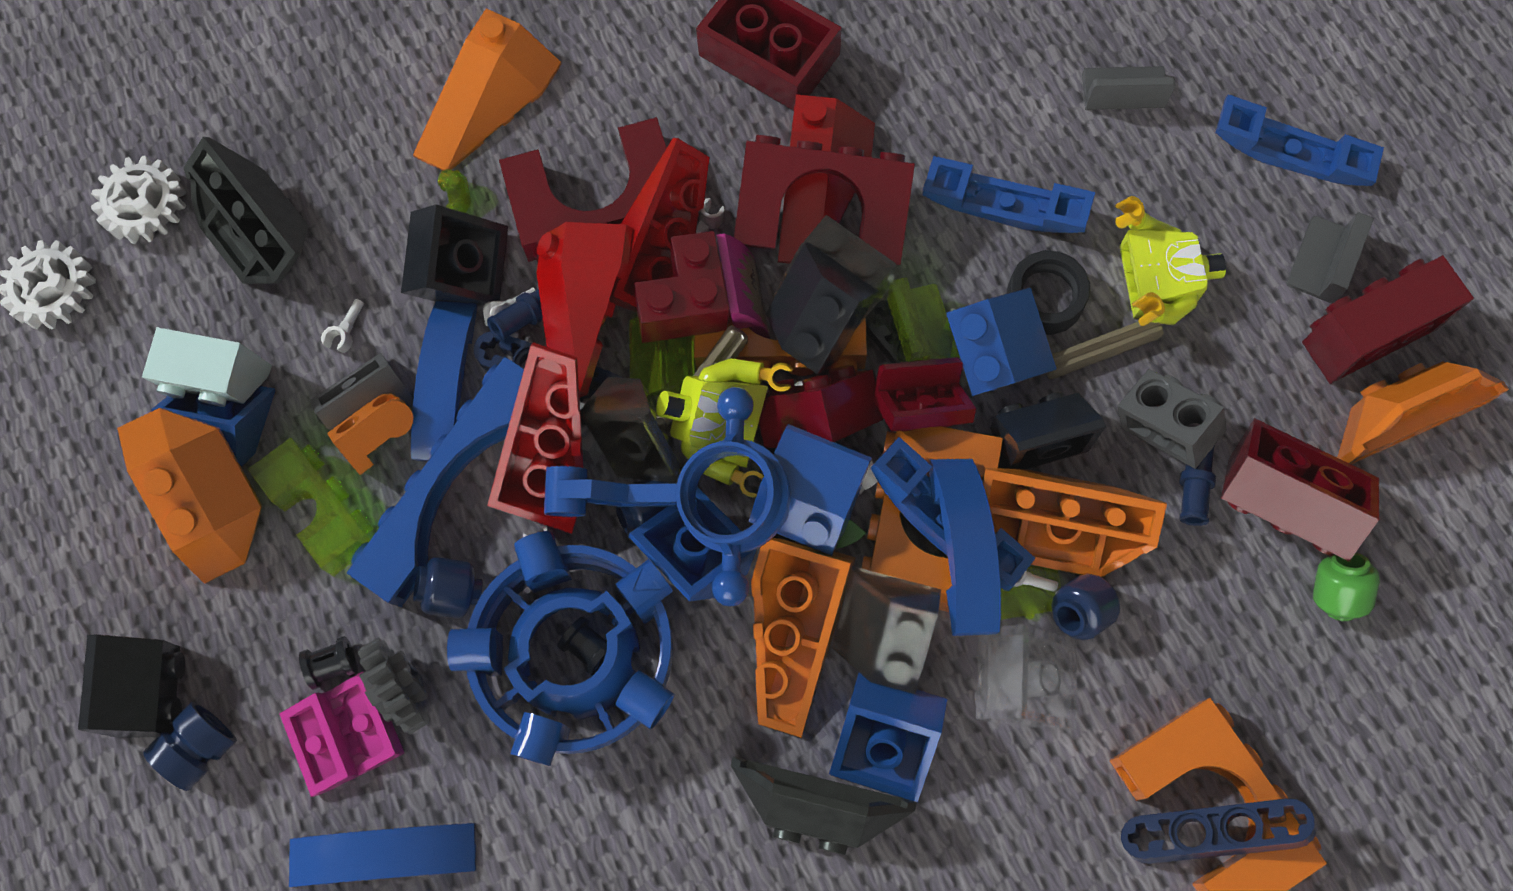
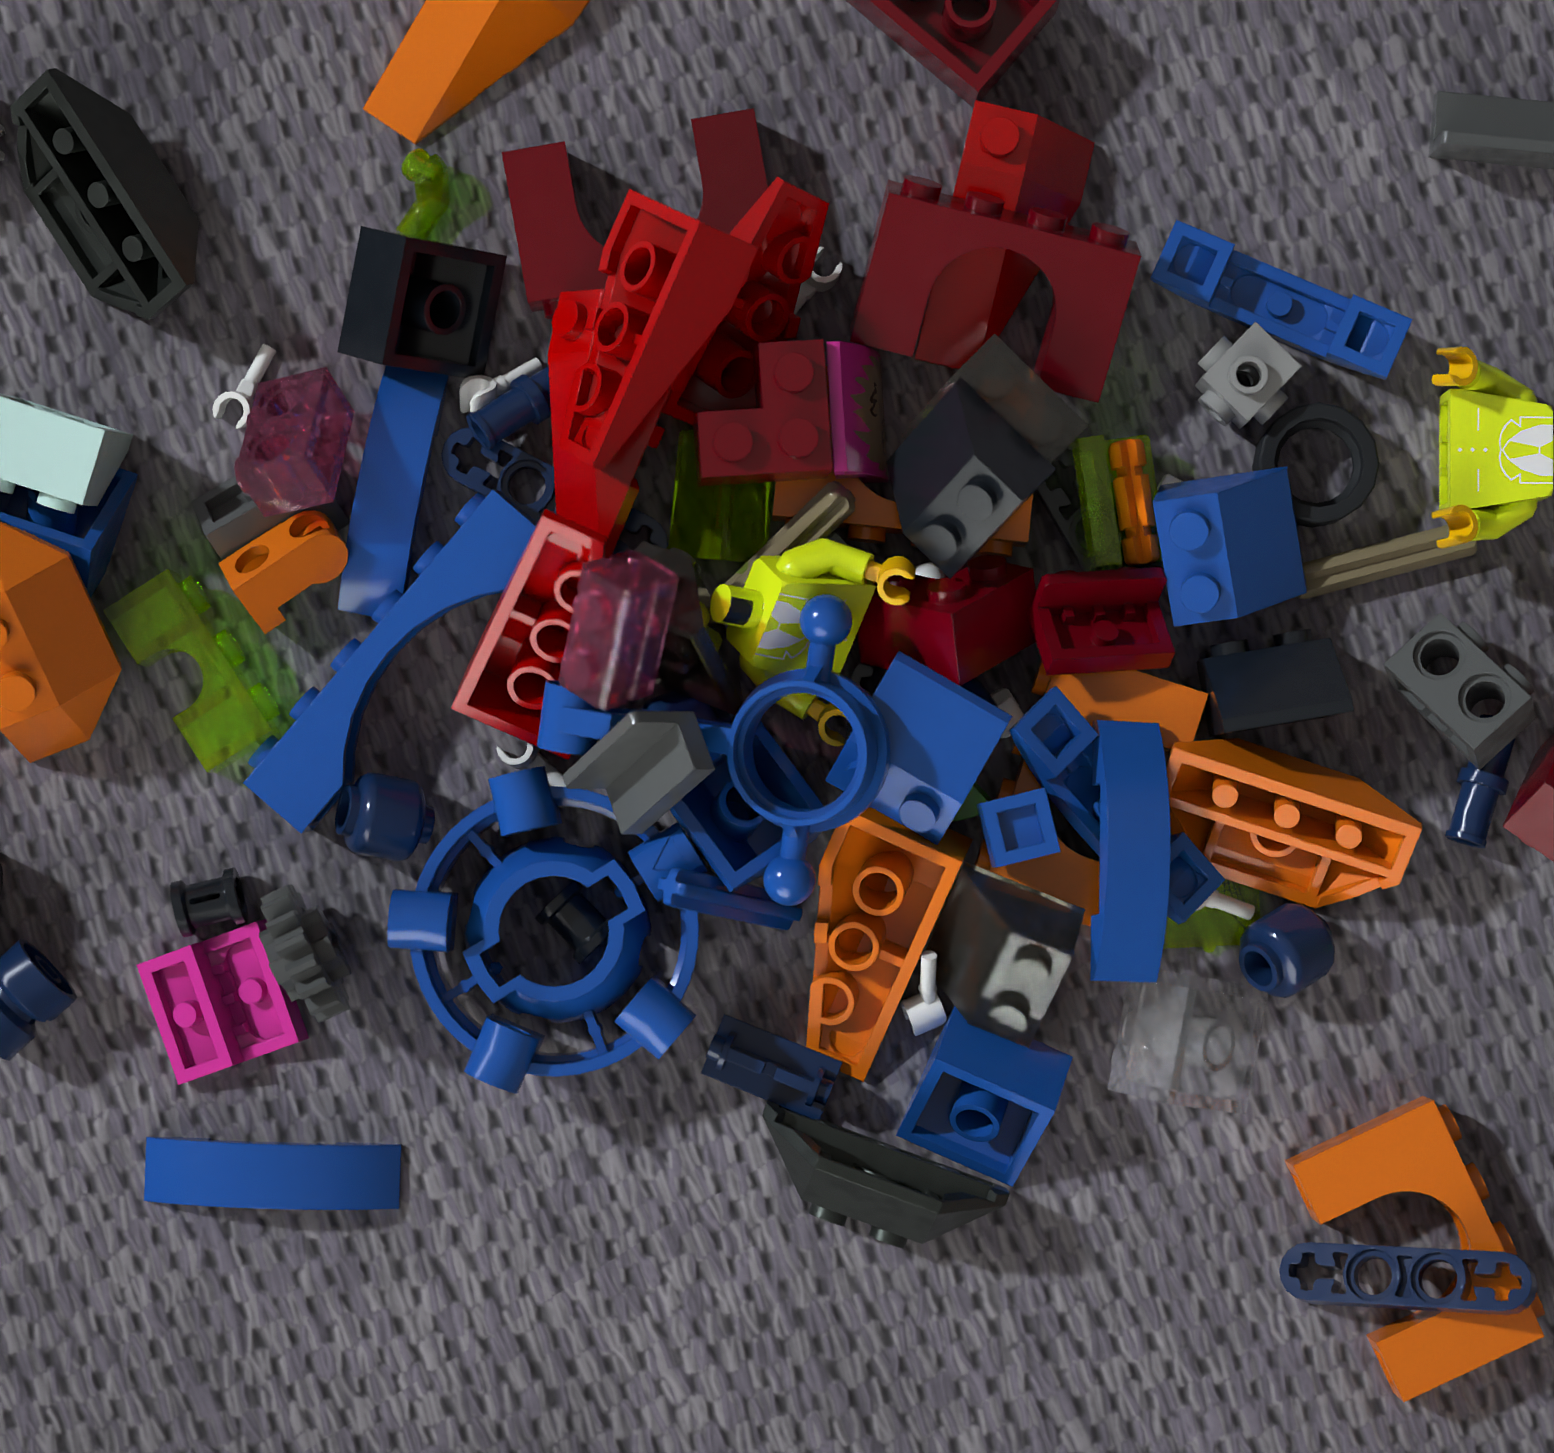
camera: 10 degrees right, 15 degrees up
(372, 346) = (294, 442): none -> clear pink brick
(590, 420) = (617, 629): none -> clear pink brick
(607, 207) = (660, 303): none -> red wedge
(617, 514) = (644, 766): none -> dark grey panel
(694, 613) = (710, 896): none -> blue axle
(733, 733) = (771, 1067): none -> dark blue hinge
(839, 679) = (925, 1008): none -> white hand
(886, 532) = (1018, 827): none -> blue brick
(933, 321) = (1134, 502): none -> orange axle
(993, 241) = (1261, 361): none -> light grey brick

